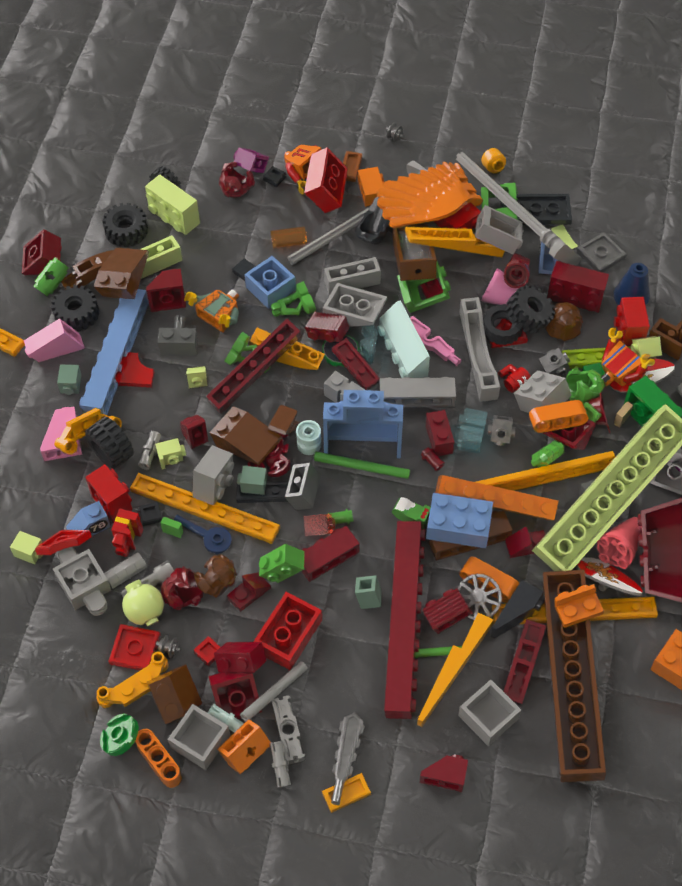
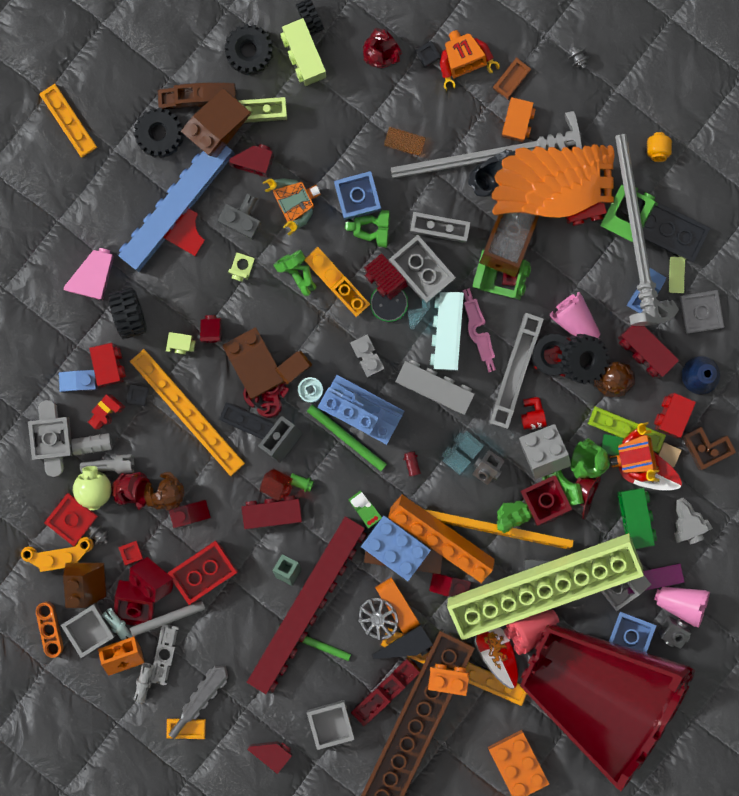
camera: 25 degrees right, 30 degrees up
(24, 547) = (17, 381): yellowish green brick -> none
(40, 251) = (151, 48): dark red slope -> none
(53, 342) = (122, 166): bright pink slope -> none
(55, 268) = (149, 85): bright green piece -> none
(63, 540) = (48, 392): red tile -> none
(69, 379) = (120, 216): sand green brick -> none
(76, 429) = (111, 284): light orange plate -> none
(119, 735) = (26, 595): green tile -> none
(149, 450) = (163, 329): light grey pin -> none
(172, 527) = (151, 423): bright green tile -> none
(213, 475) = (205, 392): light grey piece -> none
(216, 540) = (184, 448): dark blue piece -> none
(242, 268) = (342, 161): black tile -> none
(251, 160) = (408, 31): magenta brick -> none
(252, 480) = (239, 412): sand green brick -> none
(253, 366) = (293, 294): dark red brick -> none
(281, 563) = (224, 511): bright green brick -> none
(326, 180) = (471, 97): red brick -> none
(355, 364) = (393, 329): dark red tile -> none
(440, 433) = (431, 442): dark red brick -> none
(446, 610) = (344, 618): dark red brick -> none
(451, 239) = (557, 242): light orange slope -> none
(454, 664) = (325, 669): light orange slope -> none
(499, 230) = (593, 238): light grey window -> none
(517, 271) = (592, 314): dark red beam -> none
(555, 362) = (577, 421): flat silver brick -> none
(558, 416) = (541, 488): orange beam -> none
(623, 414) = (609, 503): tan tile -> none
(647, 345) = (670, 449): yellowish green brick -> none

